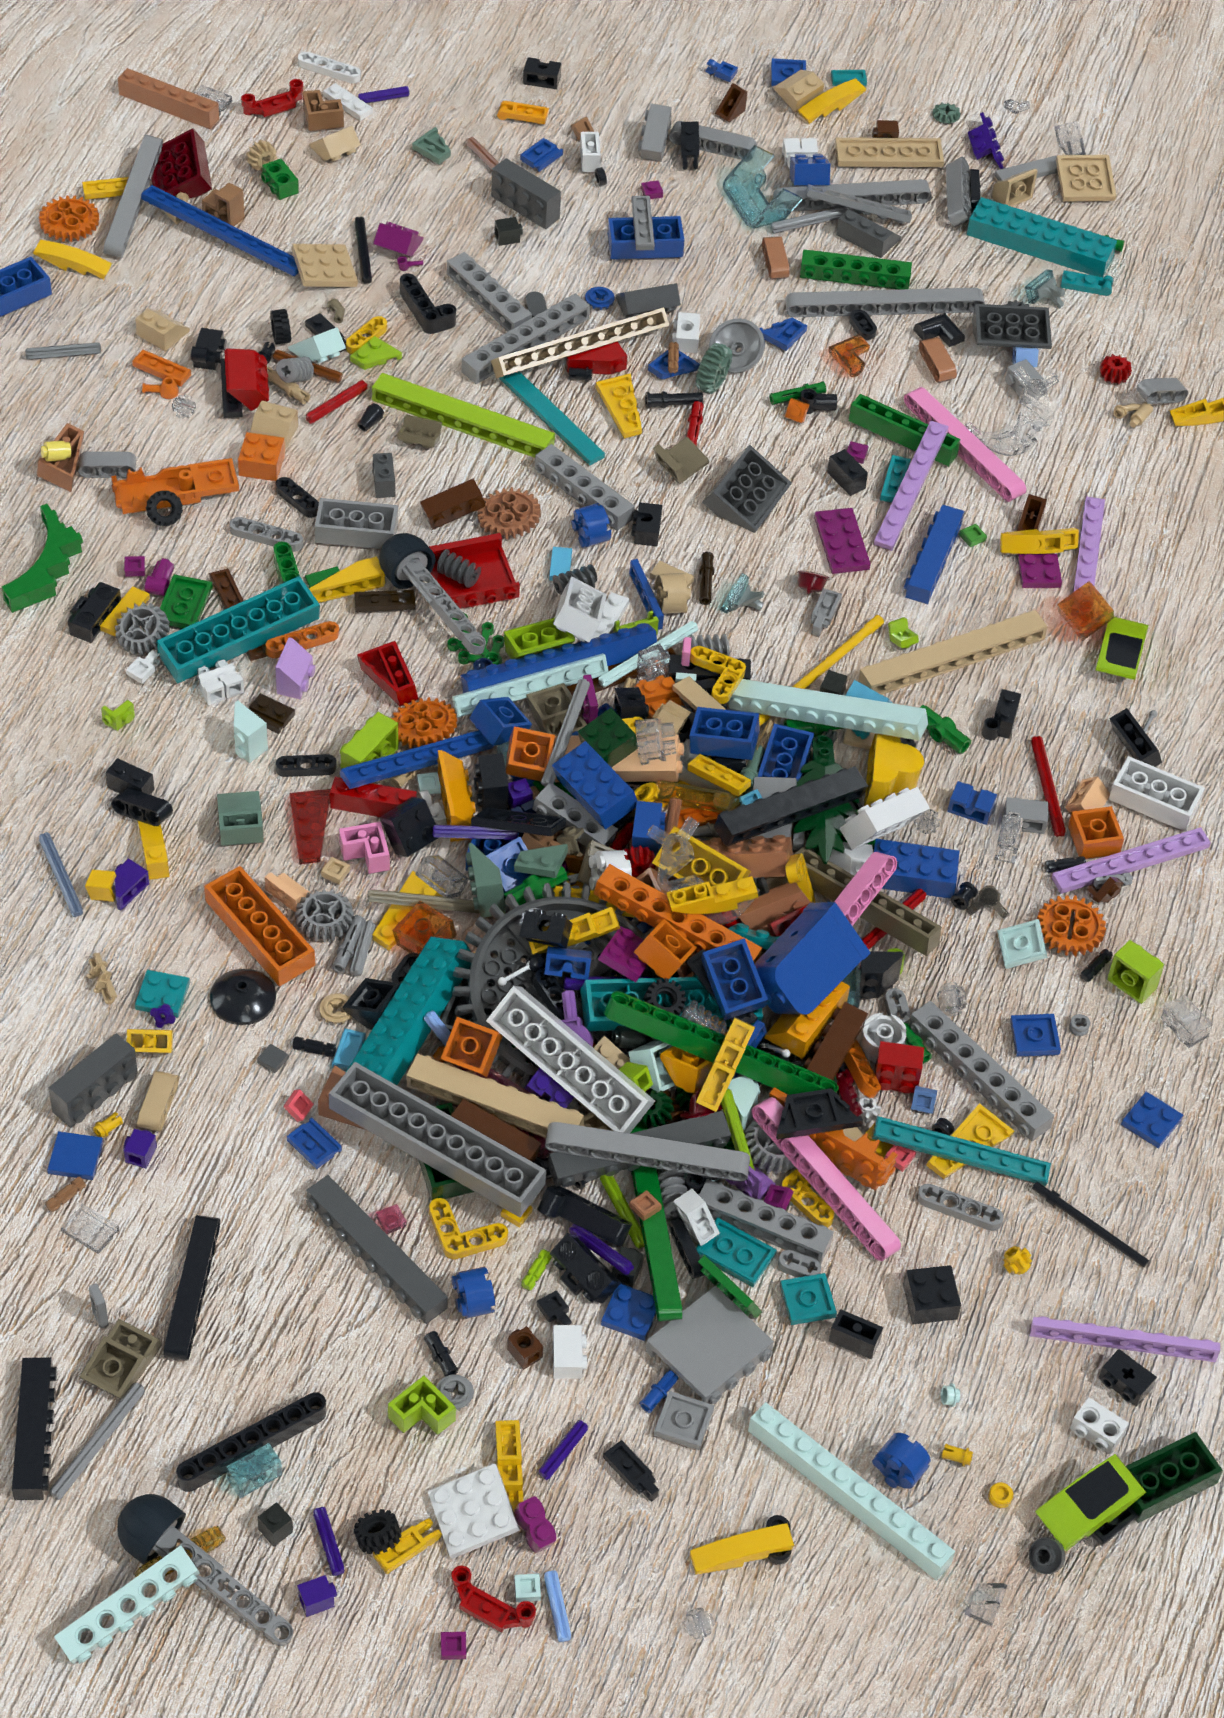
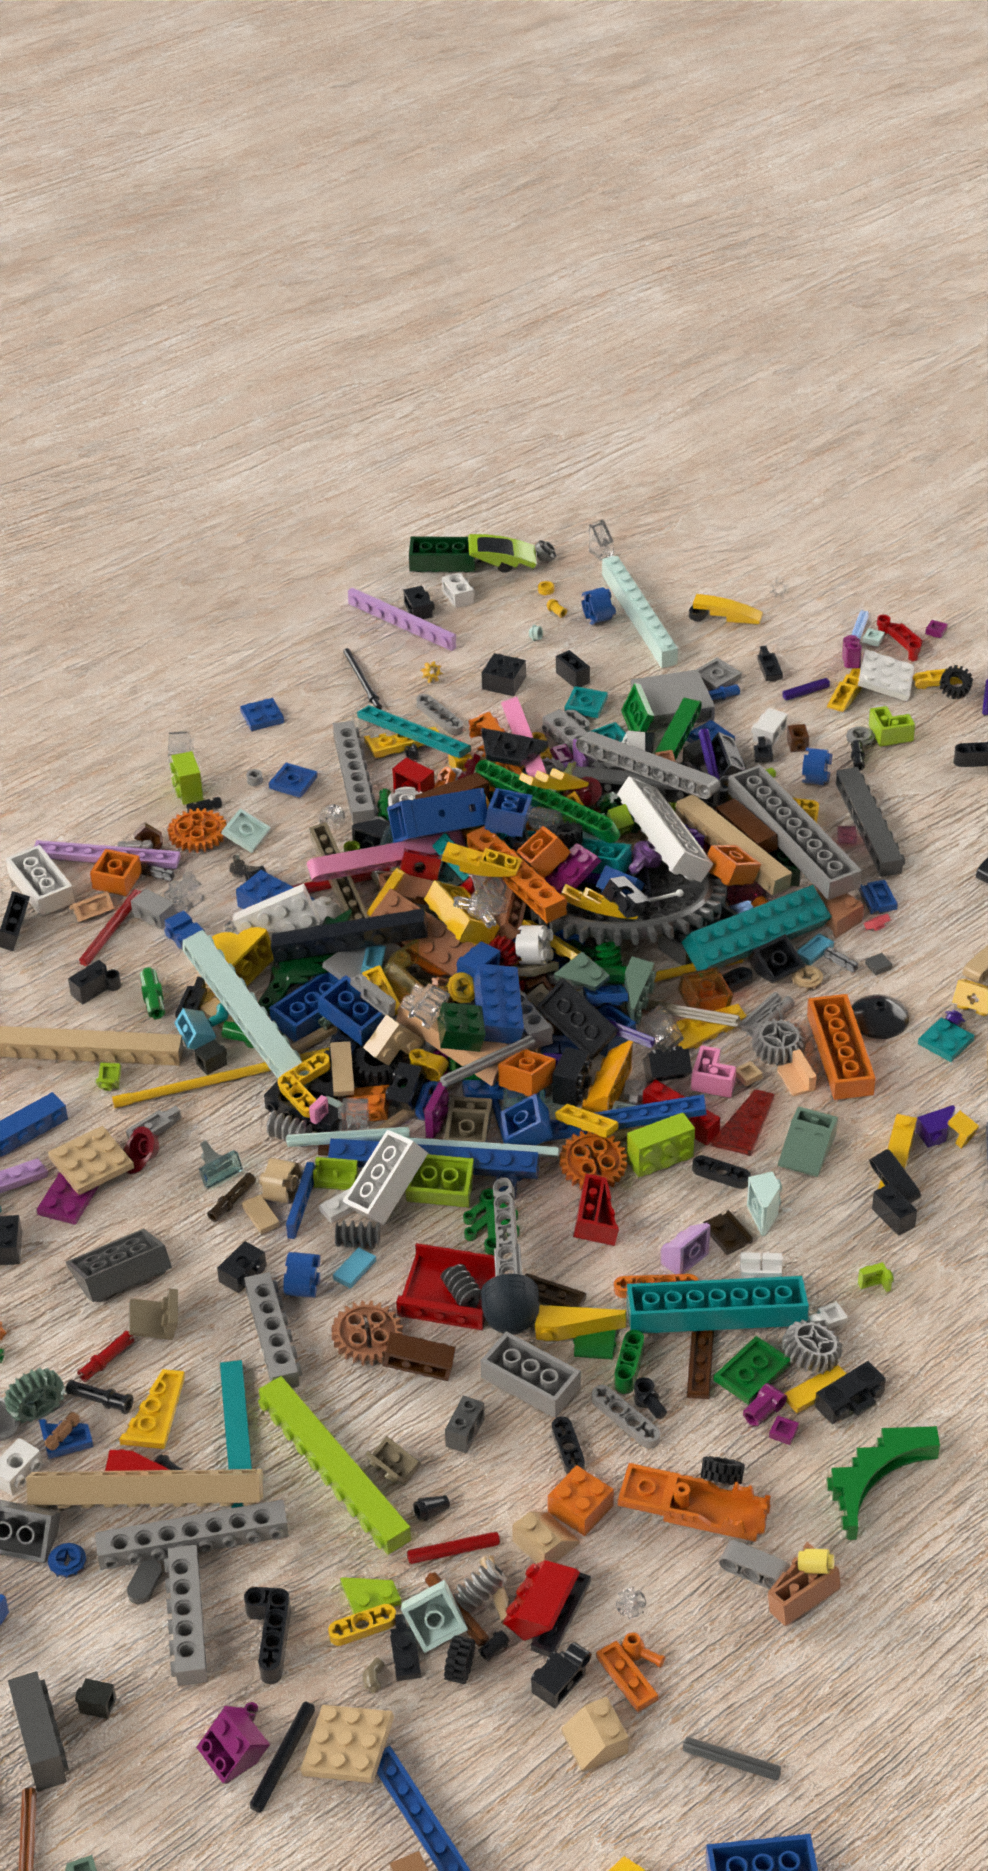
camera: 145 degrees left, 10 degrees down
(258, 548) = (647, 1397): none -> black axle
(446, 734) = (586, 1120): none -> yellow plate
(706, 726) = (374, 995): none -> light grey hinge
(843, 552) = (90, 1160): none -> tan plate

